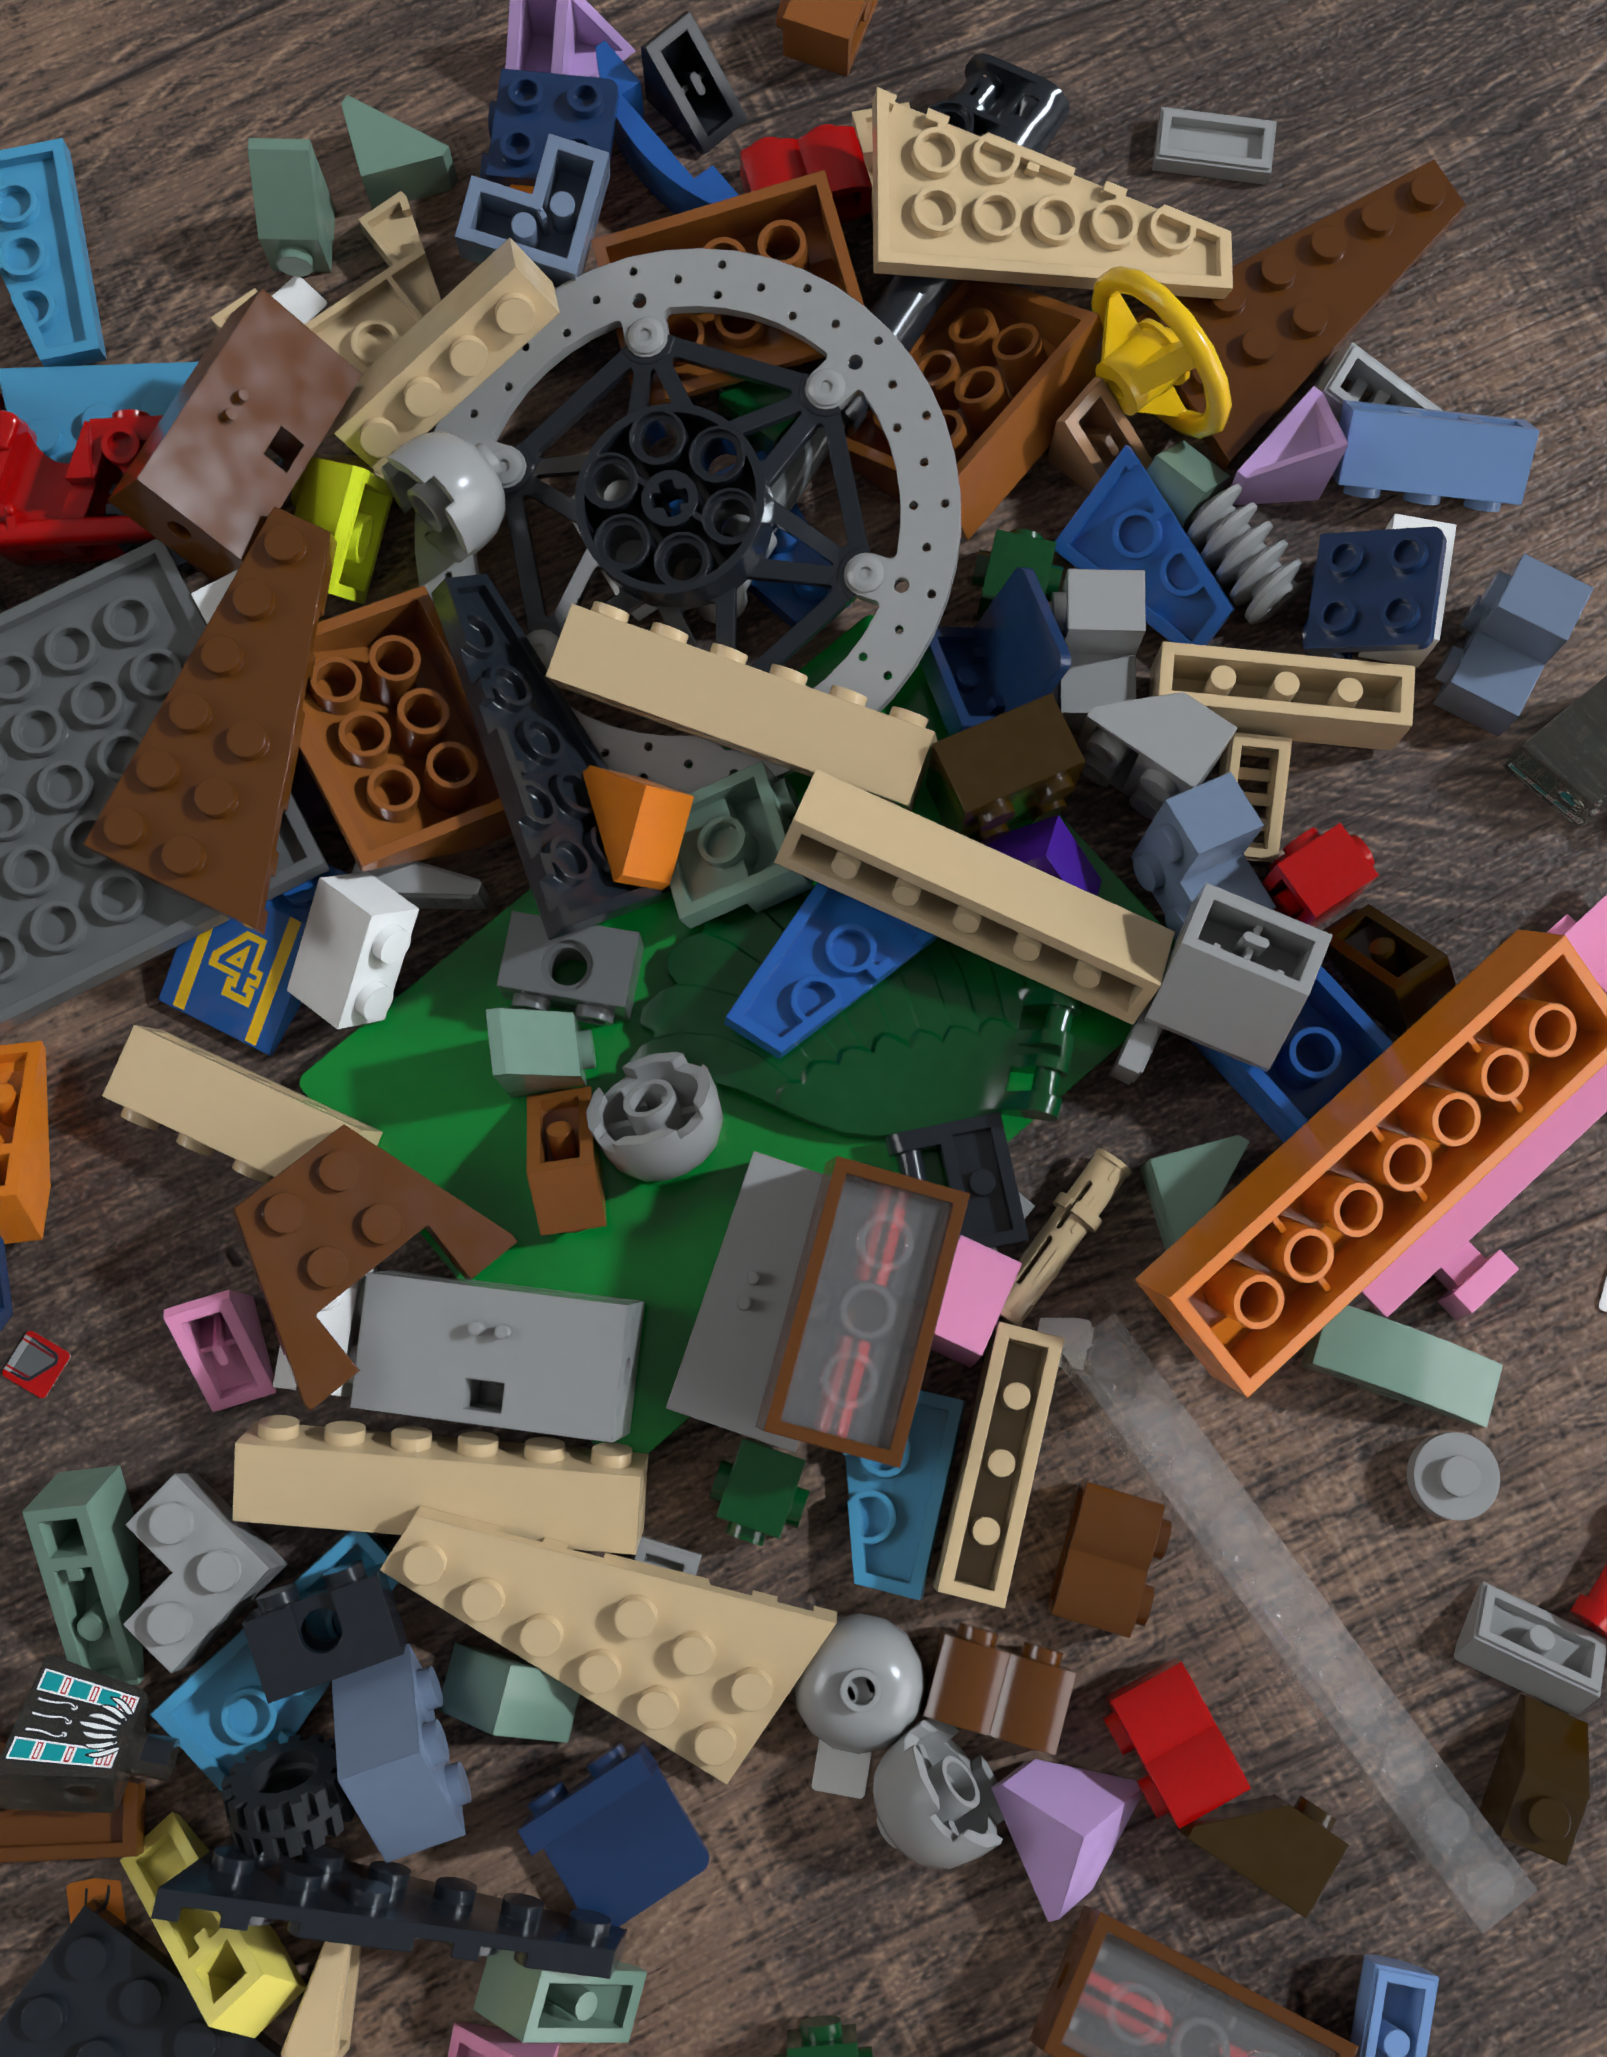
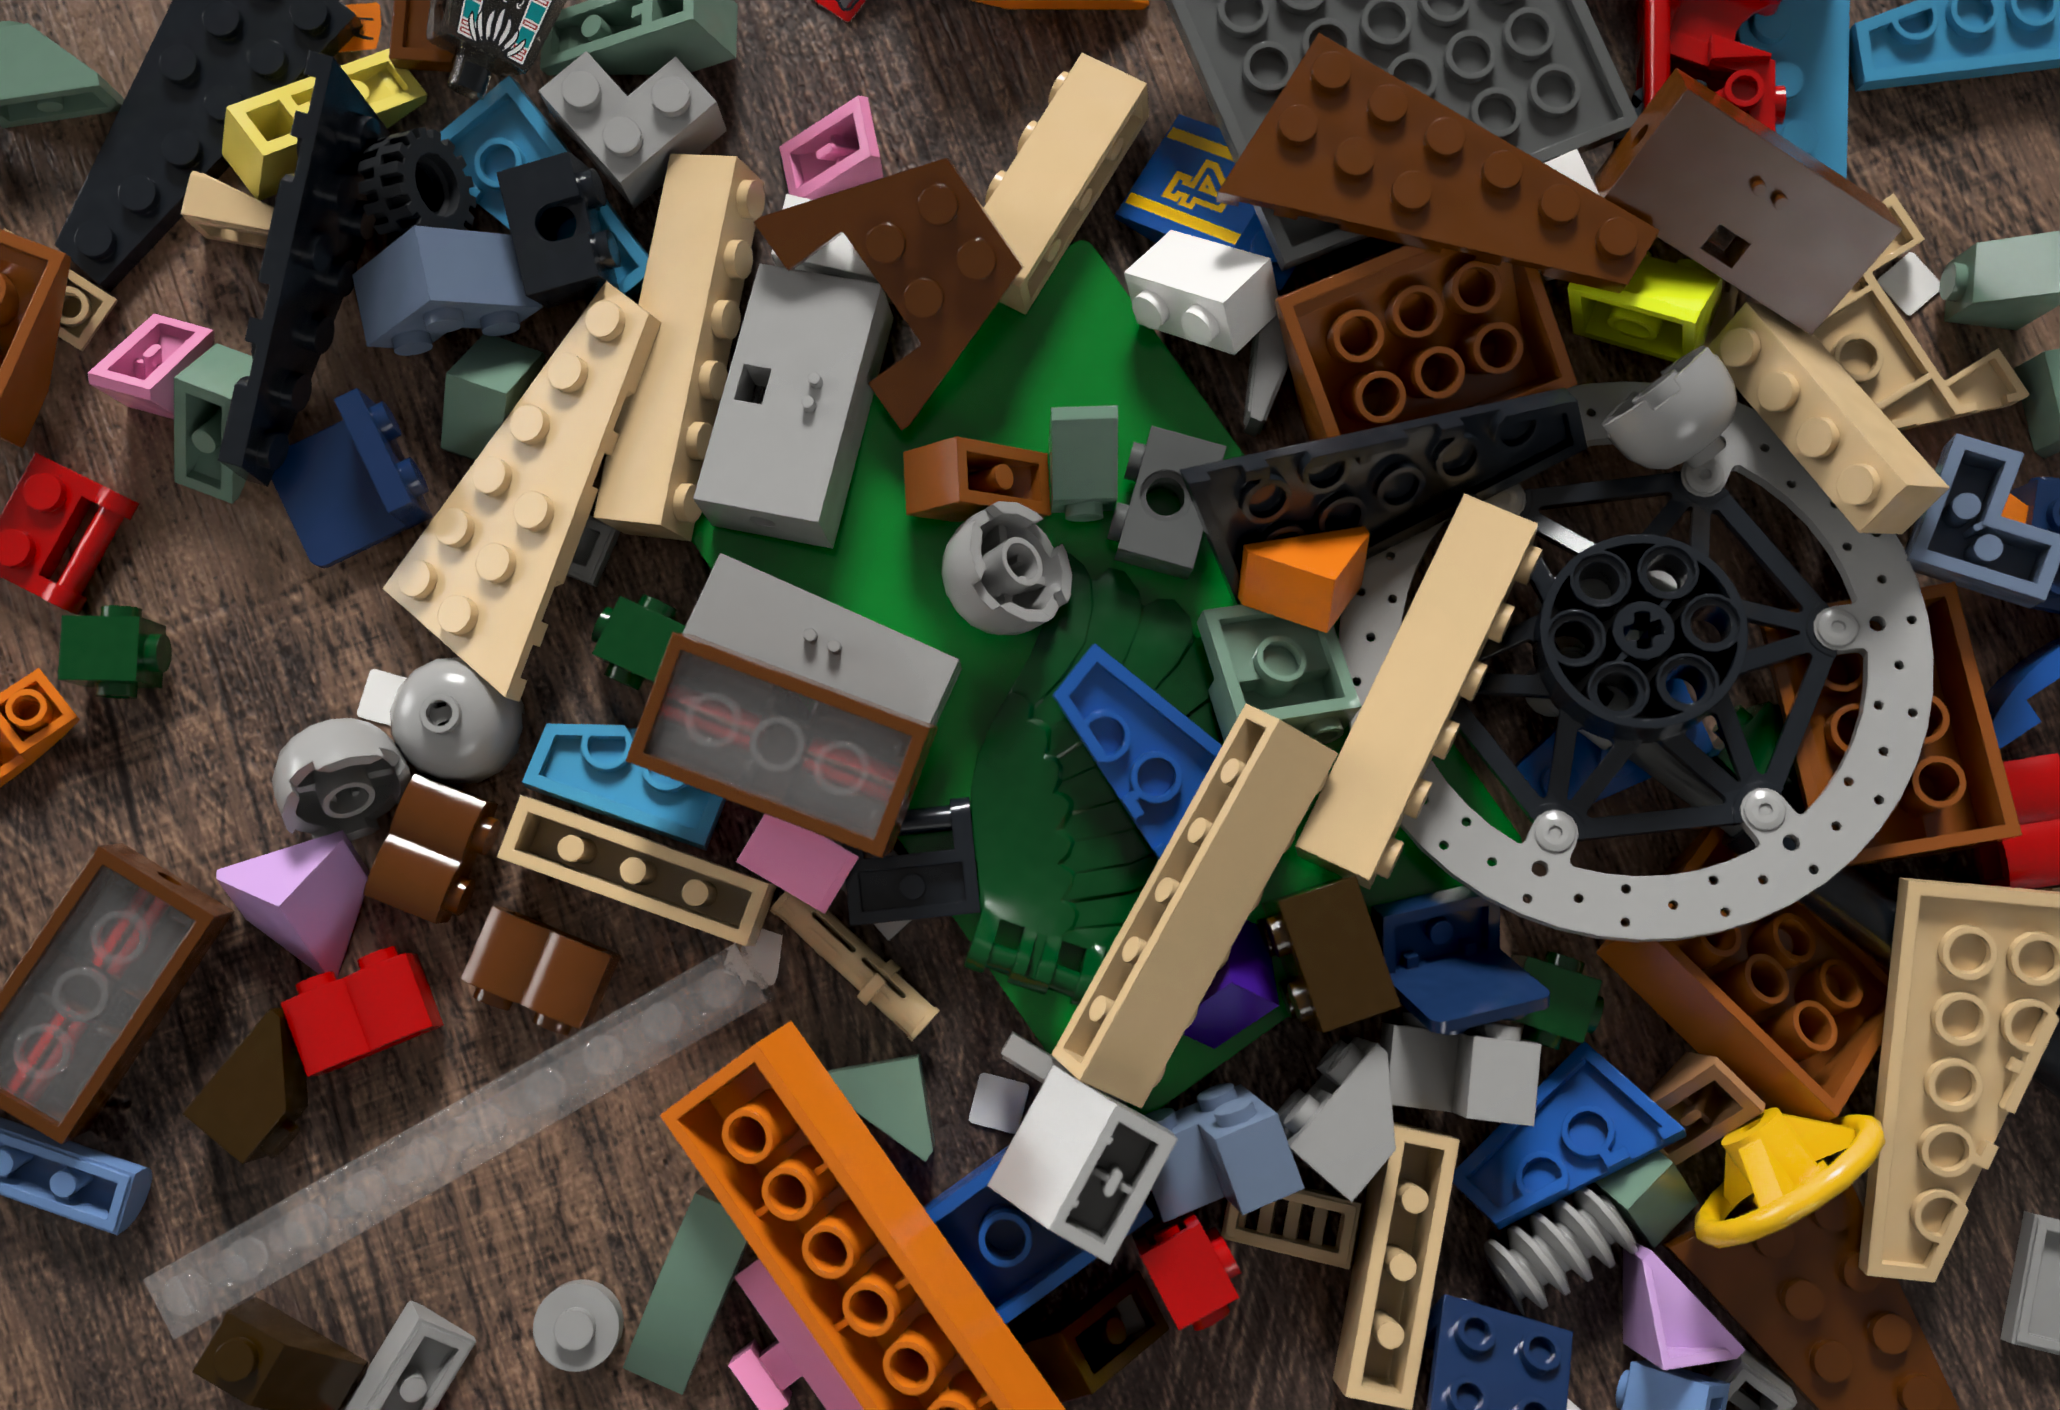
camera: 90 degrees right, 5 degrees up
(1177, 1085) = (998, 1103): none -> white sticker

